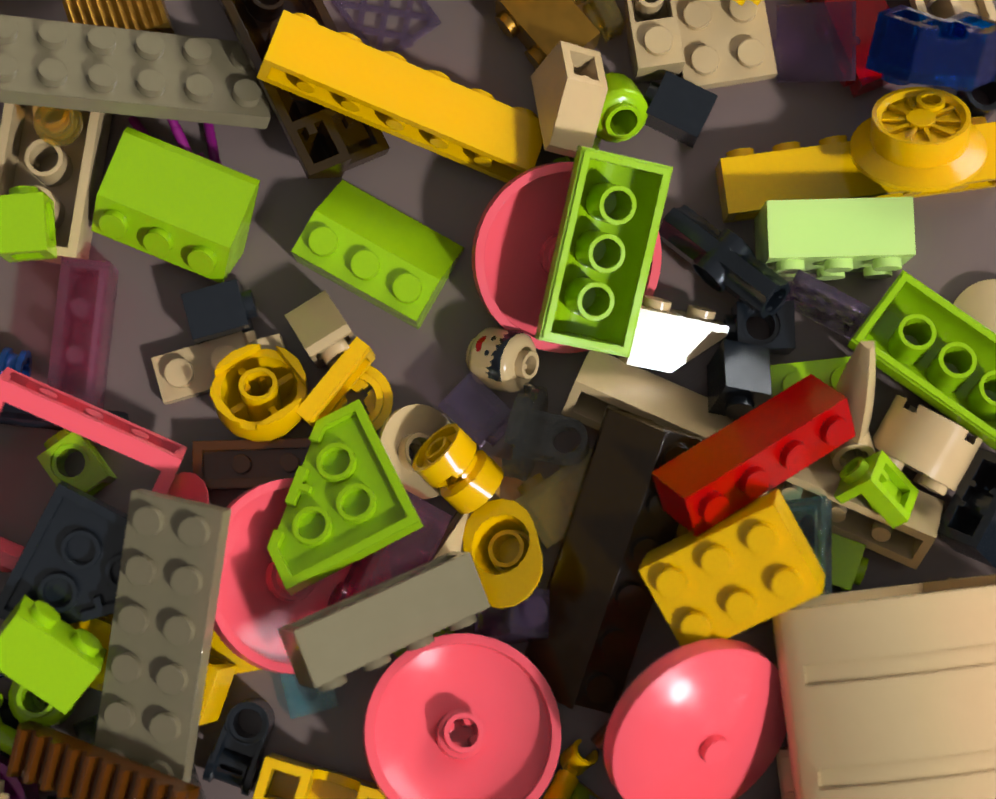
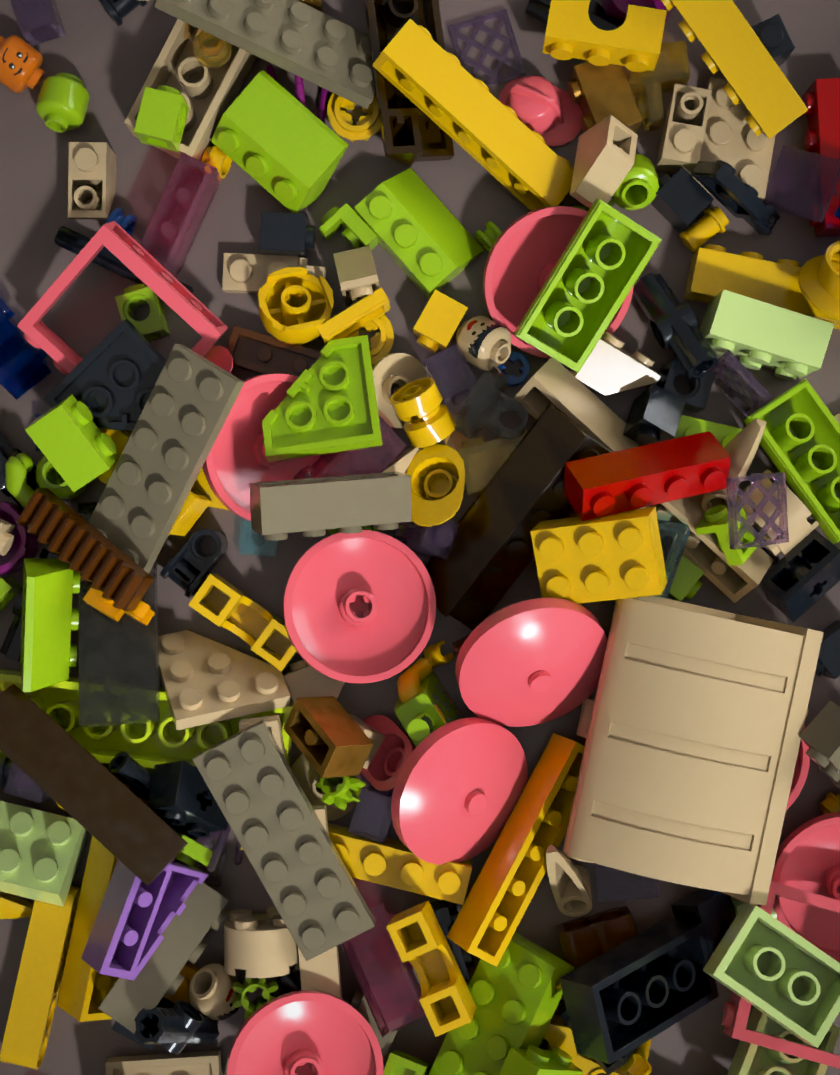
camera: 20 degrees right, 5 degrees up
(105, 249) = (218, 159): none -> yellow plate
(244, 156) = (343, 123): none -> yellow gear
(301, 276) = (356, 230): none -> lime bracket
(440, 352) = (439, 322): none -> yellow brick
(464, 230) = (488, 236): none -> lime bush
(476, 57) = (543, 108): none -> coral piece
(544, 363) = (516, 356): none -> blue bush
(719, 132) = (705, 228): none -> yellow pin
(742, 83) = (735, 195): none -> black hinge
(874, 459) = (780, 504): none -> window

